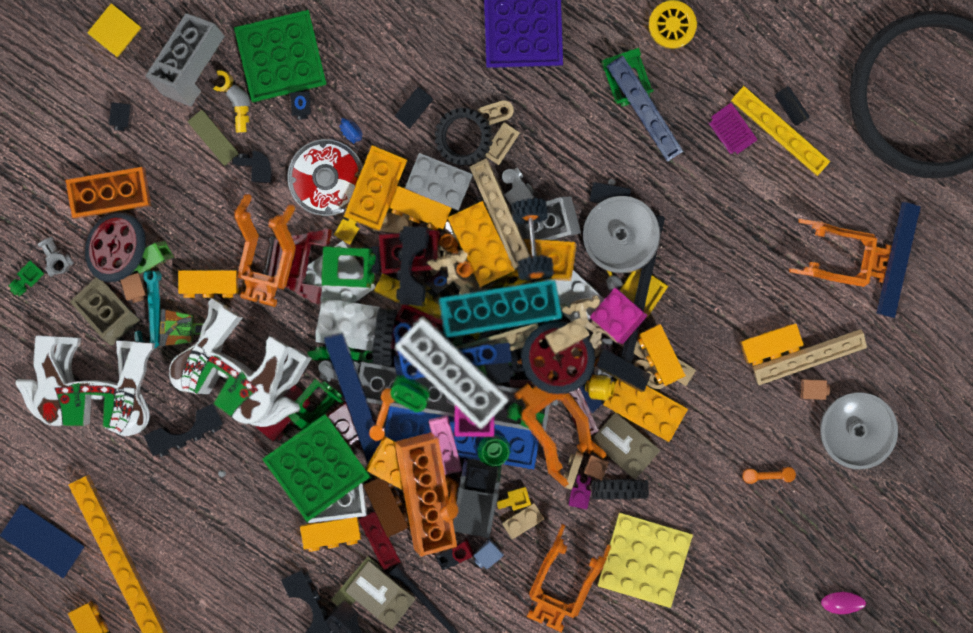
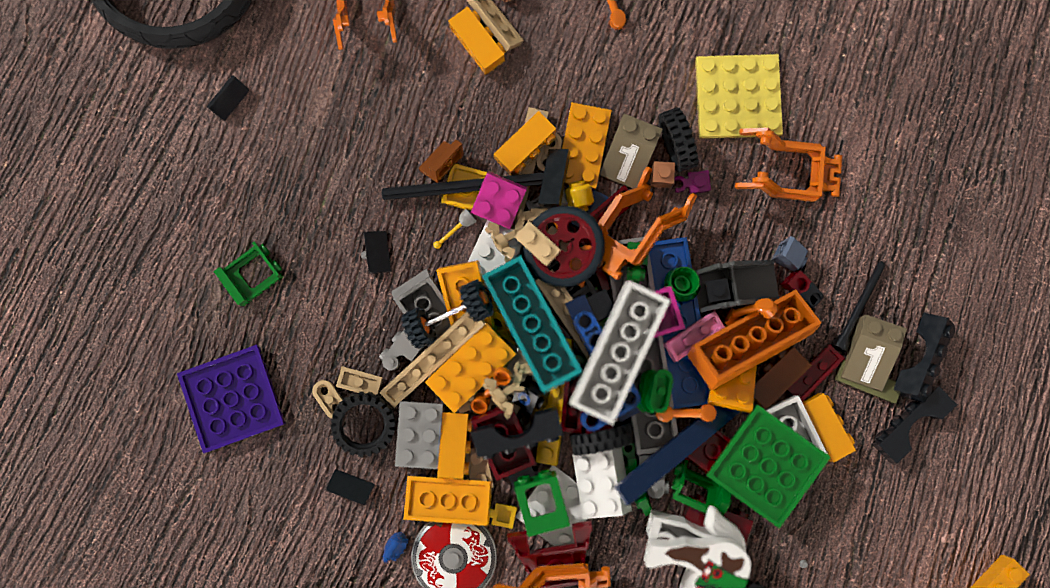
camera: 105 degrees left, 5 degrees down
(517, 499) = (722, 245): yellow plate -> none
(523, 521) = (742, 231): tan plate -> none
(574, 461) = (664, 198): tan plate -> none
(621, 234) = (413, 225): light grey dish -> none
(644, 108) = (274, 245): dark blue tile -> none
(672, 24) = (181, 245): yellow wheel -> none
(672, 277) = (442, 160): none -> dark orange panel
(732, 129) = (272, 151): magenta window -> none
(780, 131) = (257, 102): yellow plate -> none

